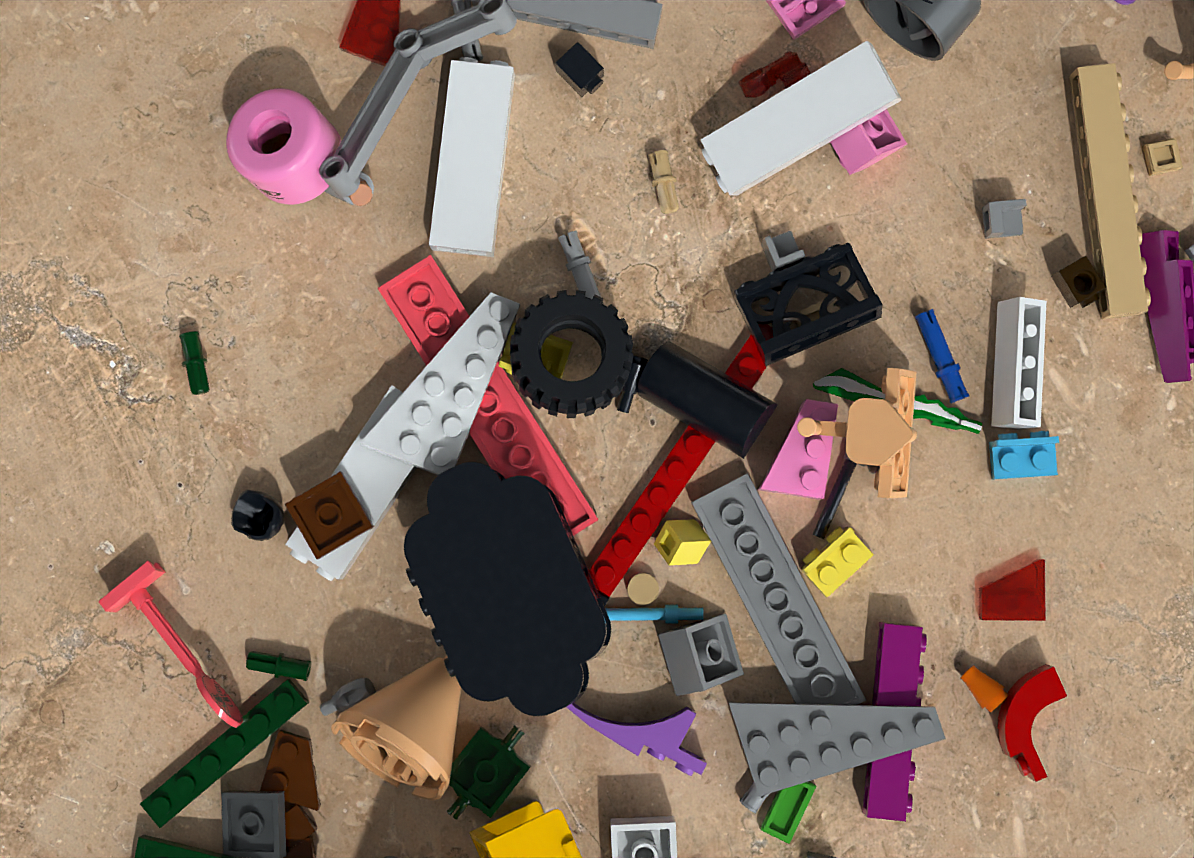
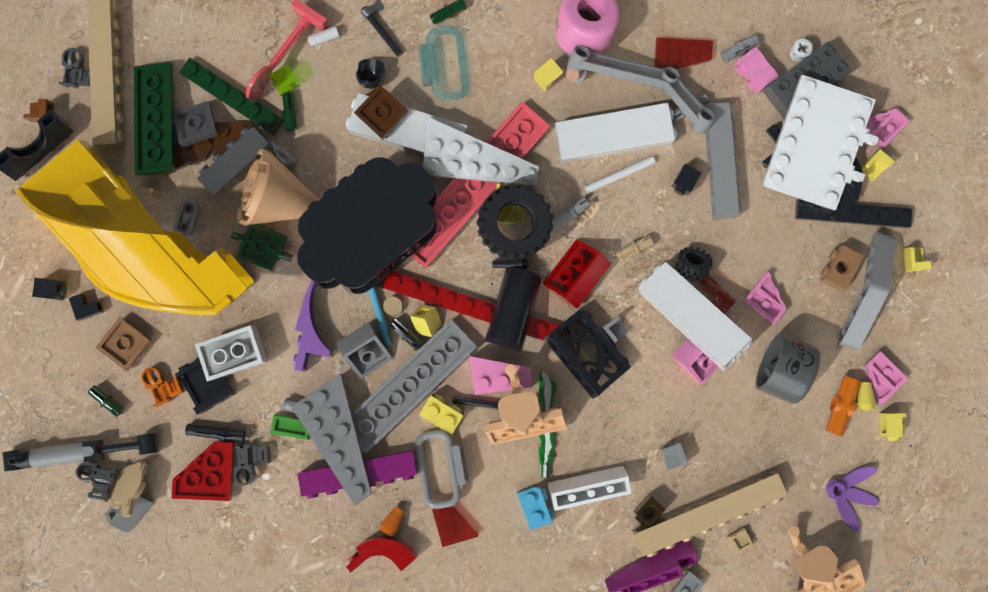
camera: 70 degrees right, 0 degrees up
(158, 492) = (367, 13): none -> black piece
(172, 575) = (323, 36): none -> white axle
(225, 658) = (284, 80): none -> clear neon green panel
(271, 418) = (429, 67): none -> clear light blue bar
(332, 777) = (233, 160): none -> dark grey brick
(346, 234) = (547, 74): none -> light yellow panel
(540, 171) = (620, 174): none -> white bar
(677, 283) = (577, 273): none -> red slope
(694, 580) = (406, 334): none -> black axle
(721, 110) = (693, 263): none -> black tyre
(926, 561) = (456, 465): none -> light grey bar
(942, 357) = (581, 441): blue pin -> none

